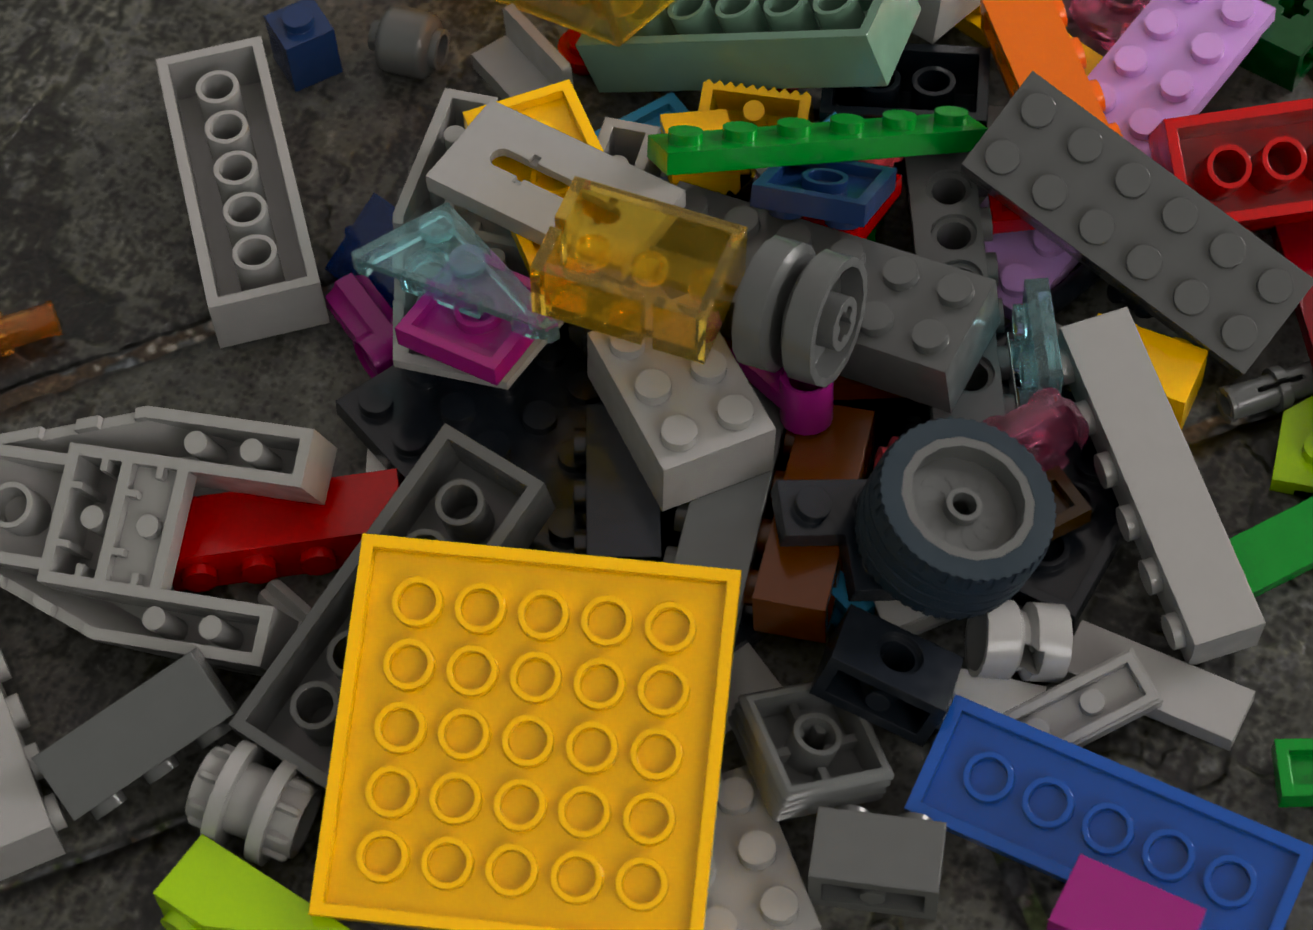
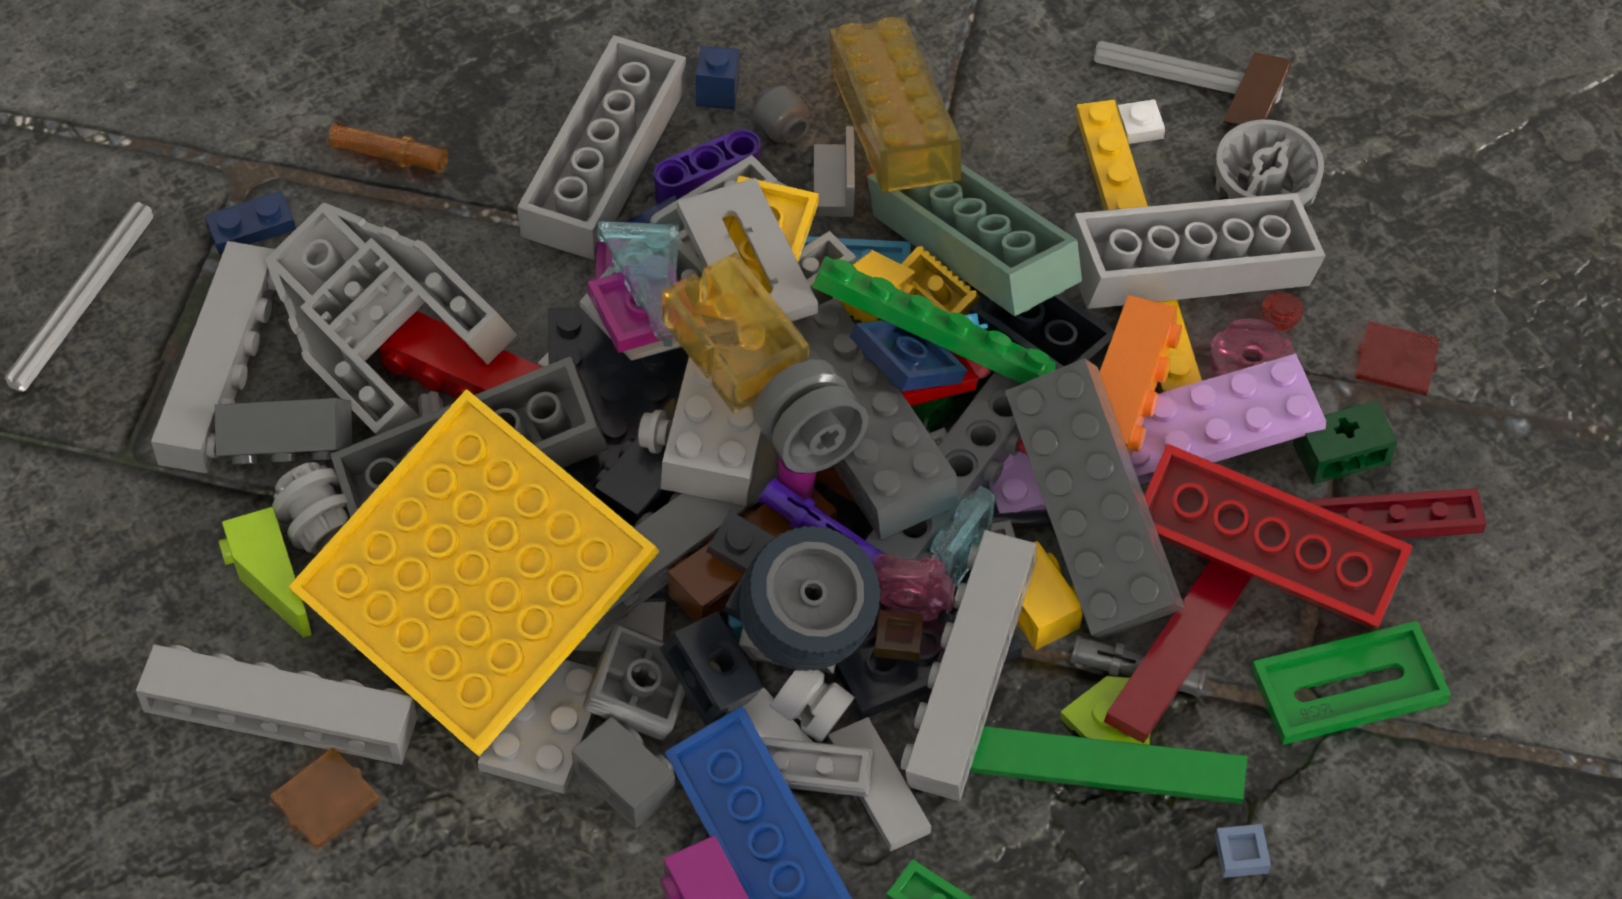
camera: 30 degrees right, 0 degrees up
(378, 146) = (698, 165): none -> dark purple beam
(610, 448) = (654, 431): none -> light grey plate
(845, 434) = (804, 513): none -> dark purple pin

